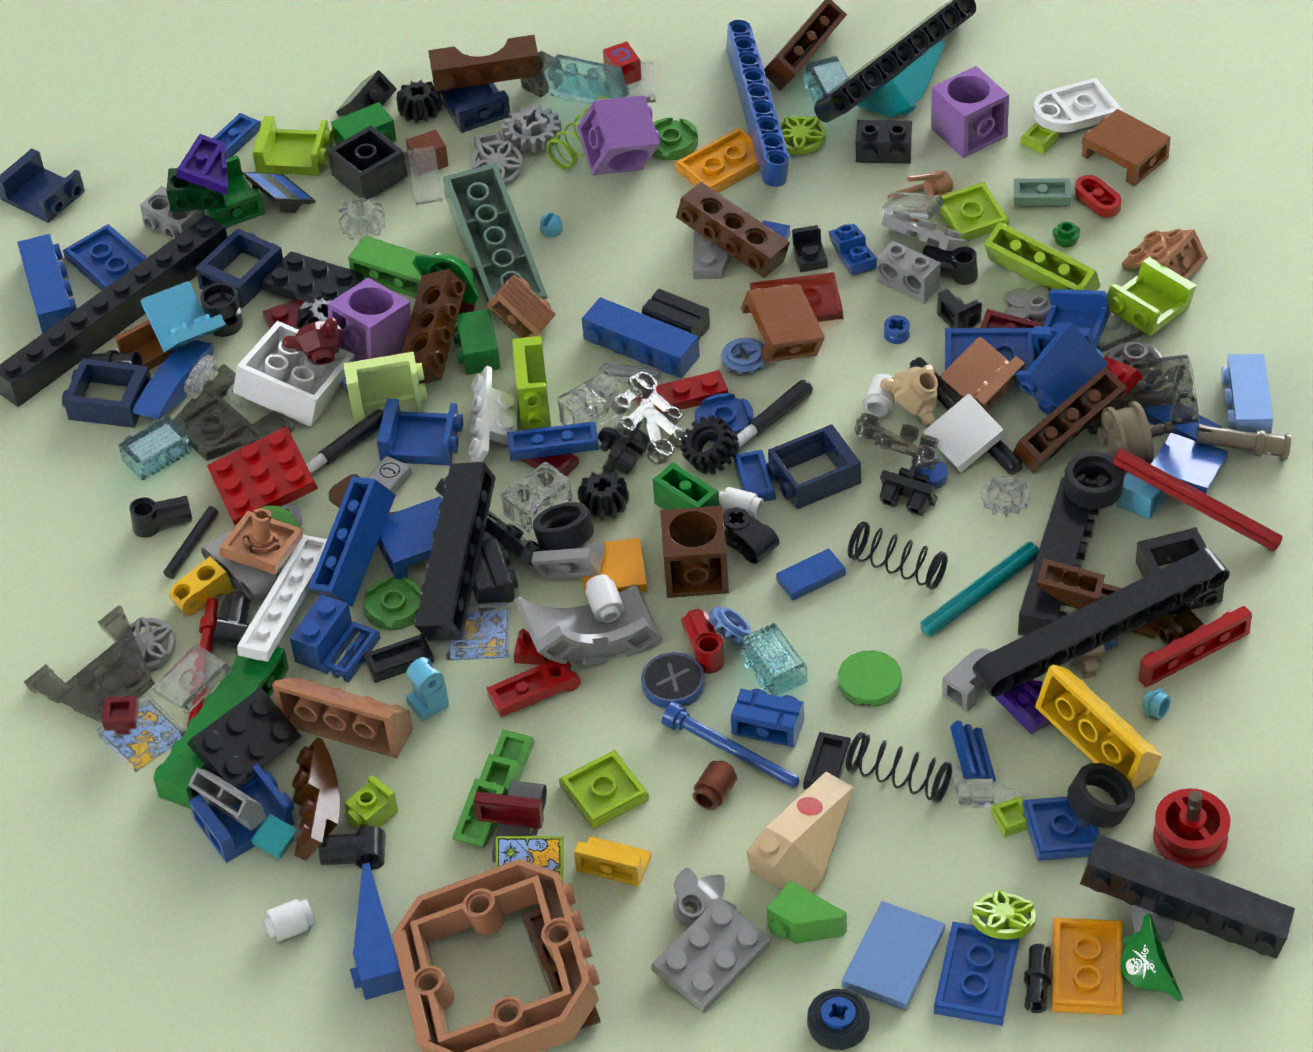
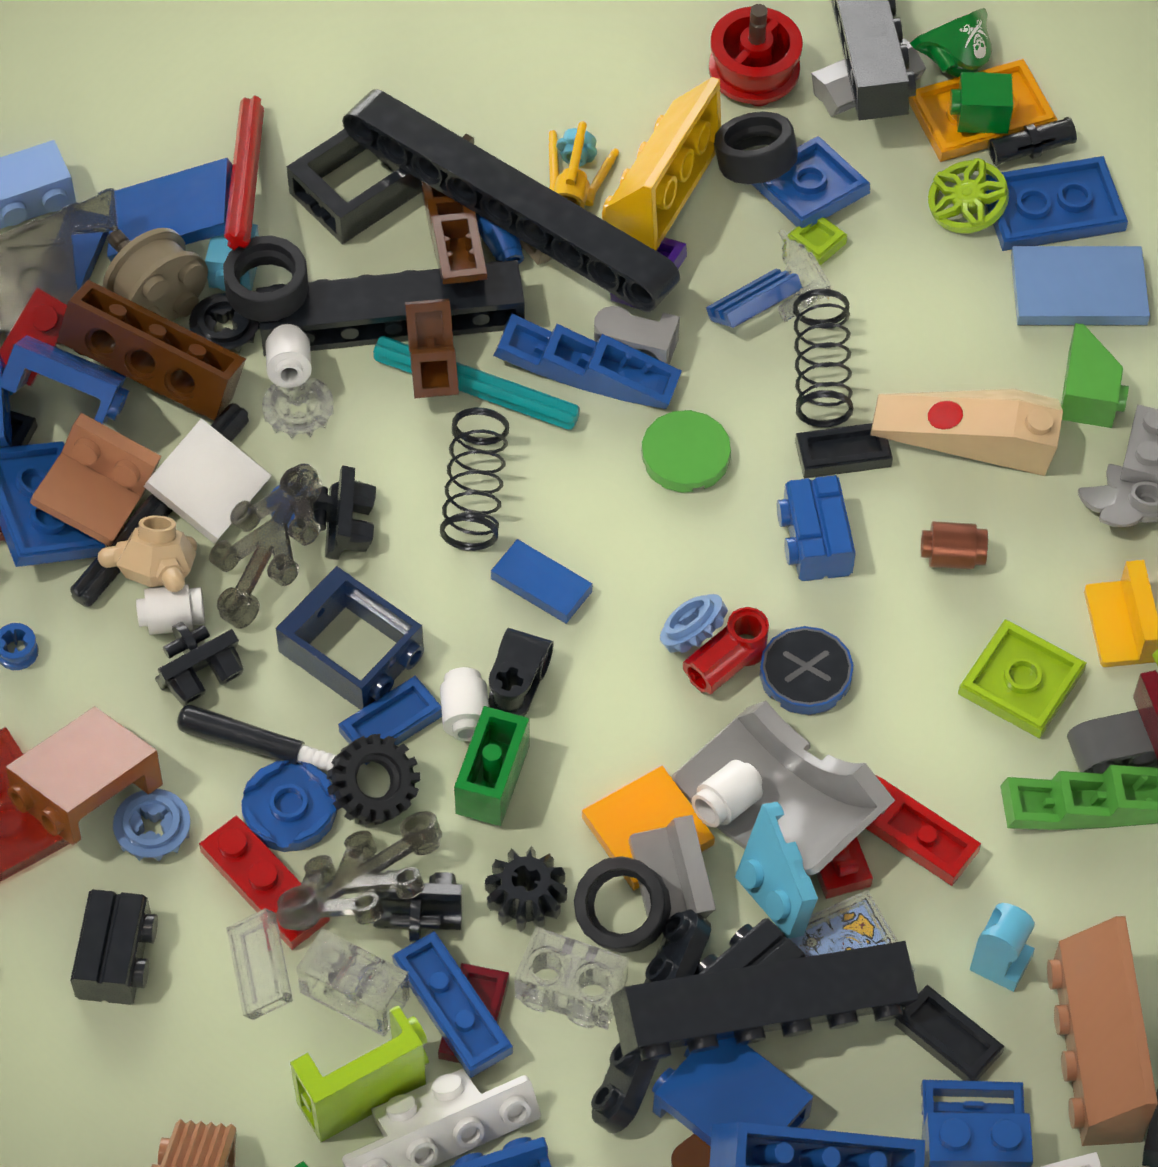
camera: 120 degrees left, 10 degrees up
(392, 603) = (856, 1091): bright green tile -> none
(545, 595) = (776, 875): none -> medium azure wing
(640, 337) = (176, 981): blue brick -> none
(677, 718) = (870, 635): blue piece -> none
(694, 551) = (603, 671): reddish brown brick -> none
(773, 660) = (722, 555): clear light blue brick -> none
(840, 394) = (181, 673): none -> black hips
(975, 633) = (592, 366): none -> blue slope
(997, 558) = (431, 348): none -> reddish brown slope
(1035, 486) = (288, 356): none -> white brick
(1077, 945) = (983, 102): none -> green brick
(1120, 686) = (572, 181): none -> yellow plant
(1194, 646) = (487, 135): red plate -> none
(1257, 442) = (87, 154): dark tan pin -> none

